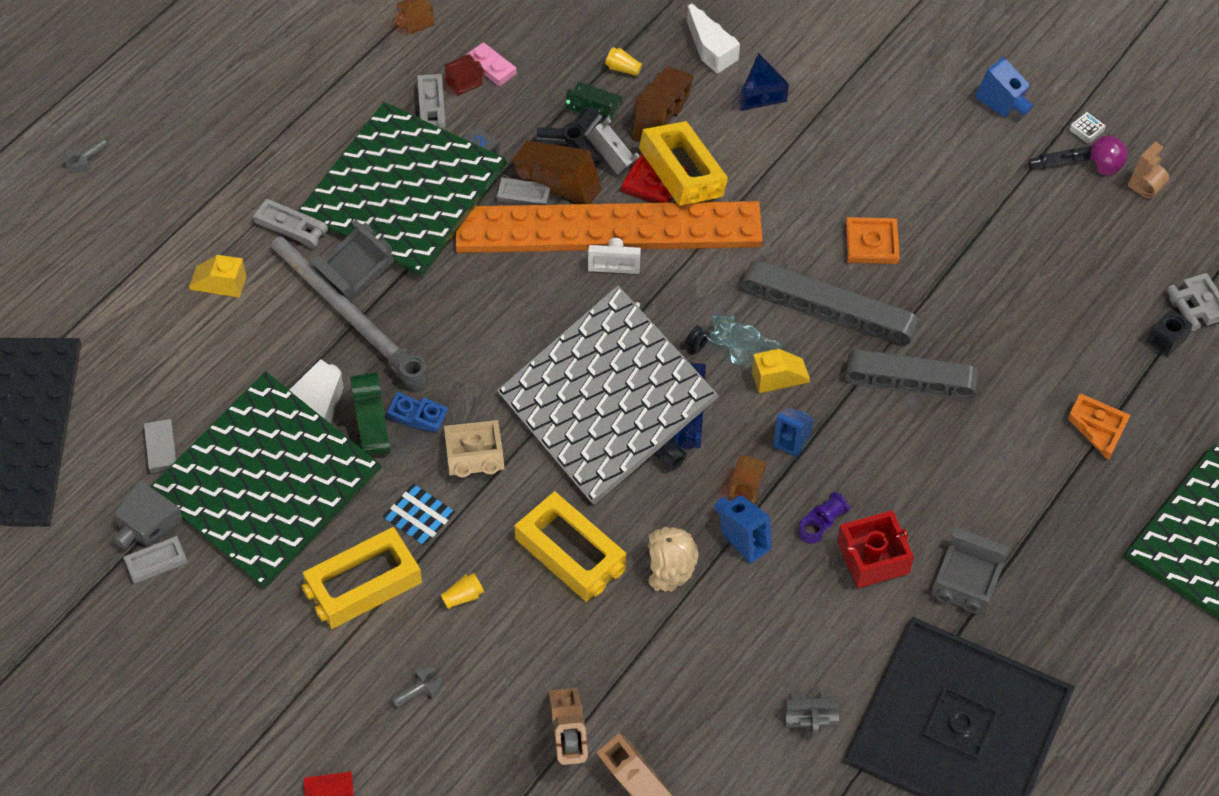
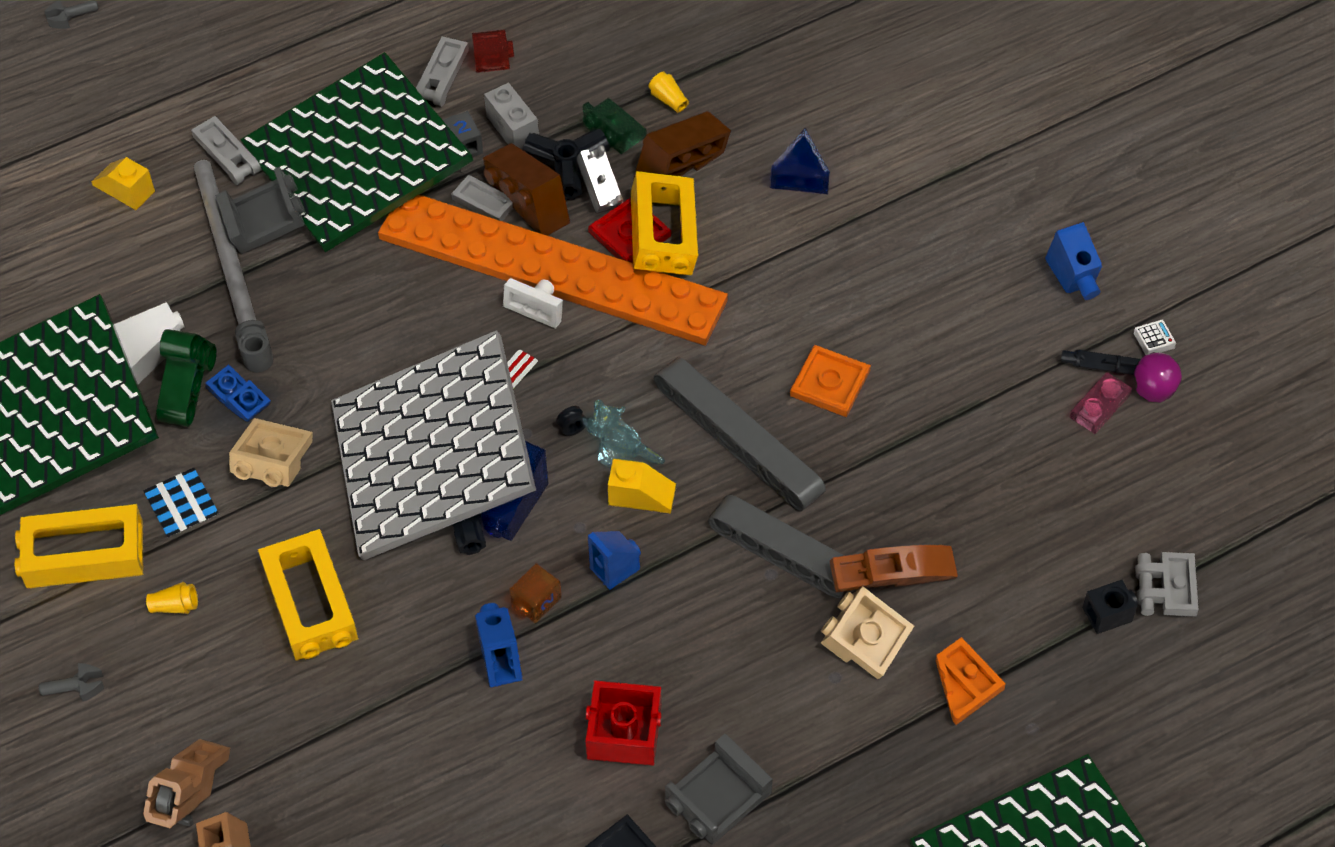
camera: 25 degrees right, 0 degrees up
(493, 64) = (529, 49): bright pink plate -> none
(511, 120) = (510, 115): none -> light grey brick
(672, 558) = (400, 647): tan hair -> none
(713, 43) = (778, 102): white slope -> none
(823, 517) = (593, 666): dark purple connector -> none
(1004, 360) = (893, 566): none -> dark orange slope
(1009, 415) = (866, 632): none -> tan plate
(1076, 188) = (1100, 403): none -> clear pink piece
(1149, 175) = (1189, 415): medium nougat plate -> none

